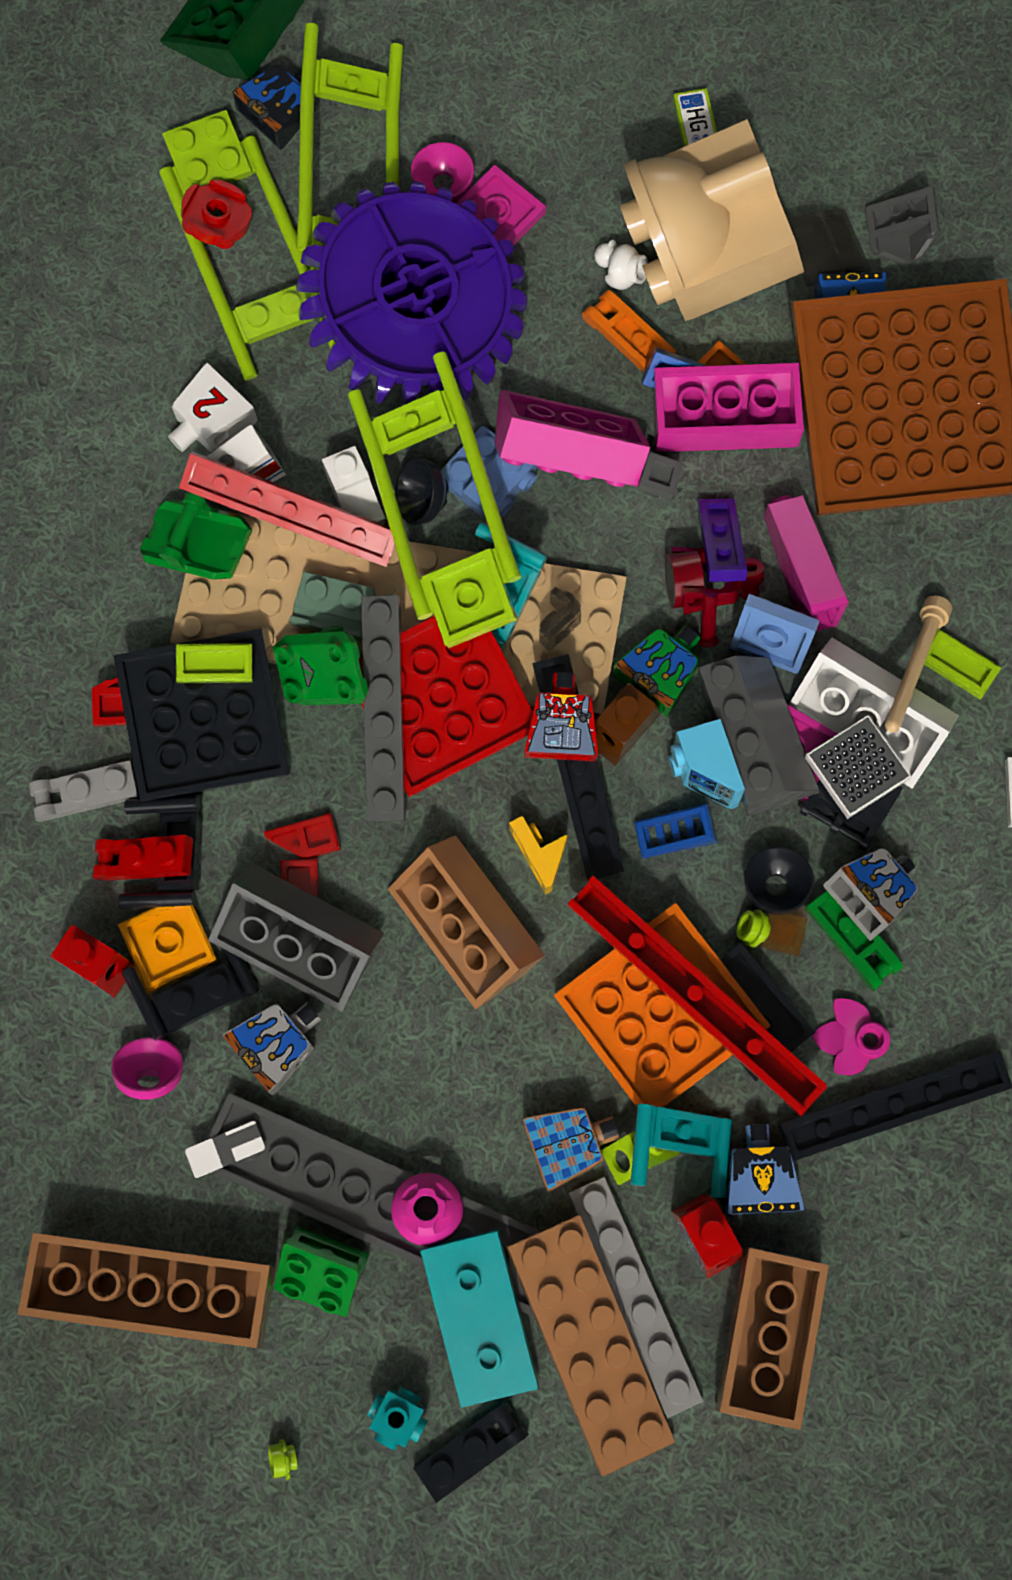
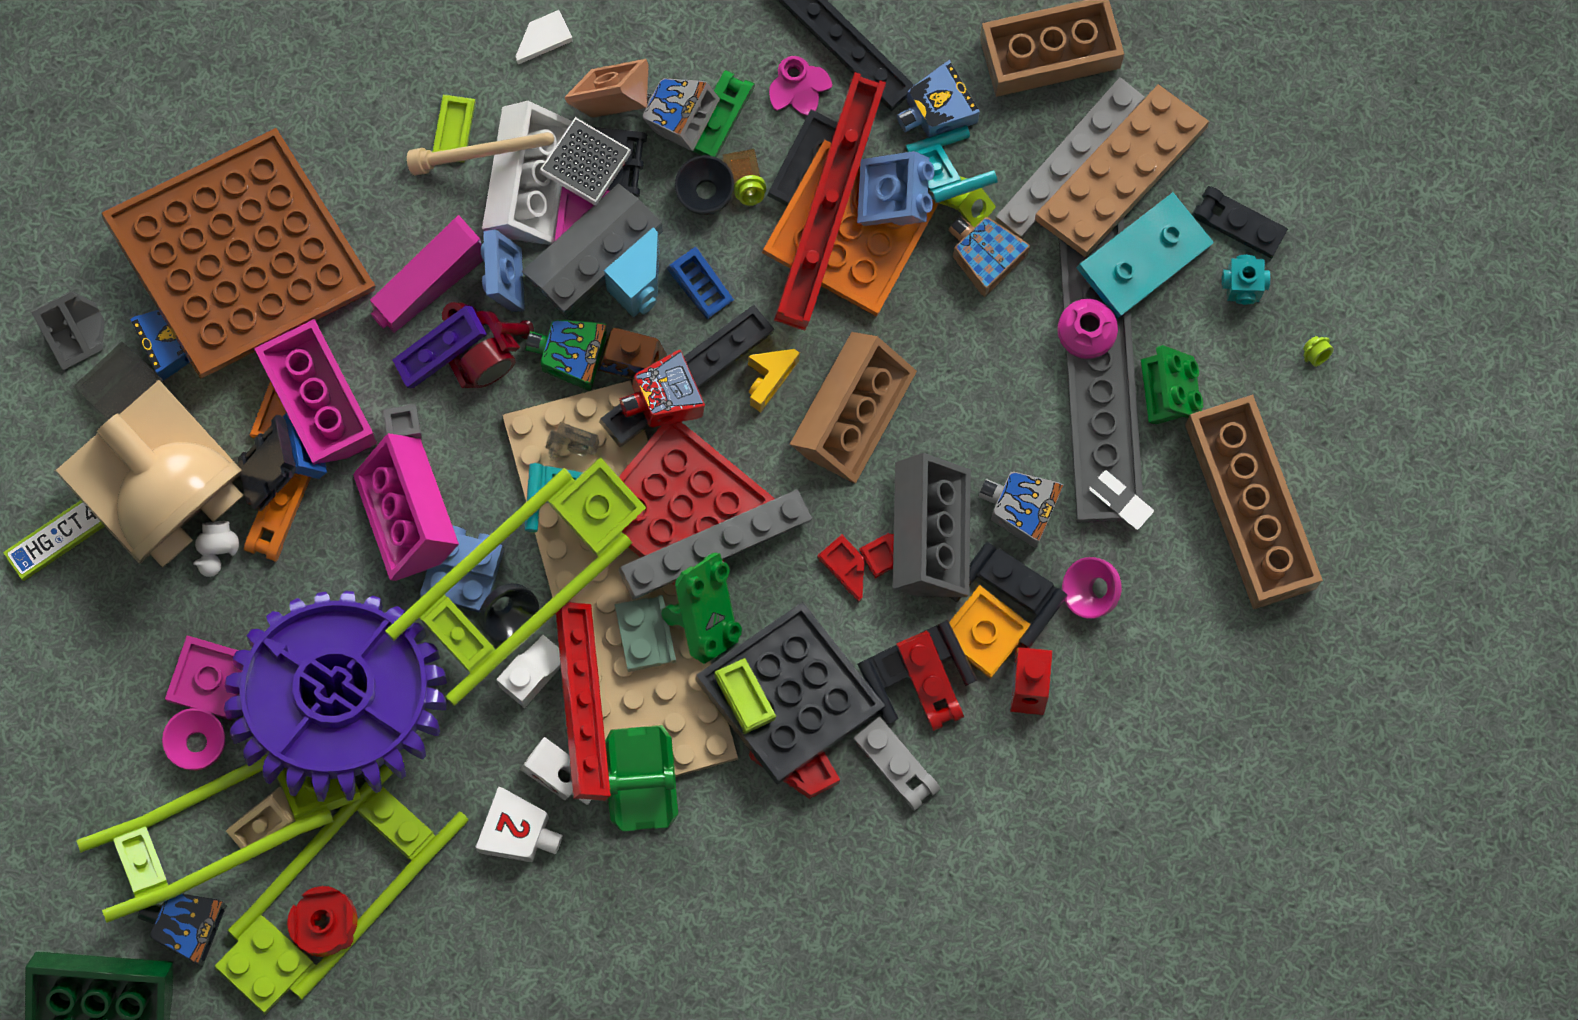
camera: 120 degrees left, 0 degrees up
(331, 190) = (262, 820): none -> tan slope
(674, 330) = (267, 464): none -> black plate
(674, 1068) = (894, 189): none -> medium blue plate
(708, 1234) = (1002, 119): red torso -> none
(932, 832) = (611, 89): none -> nougat slope

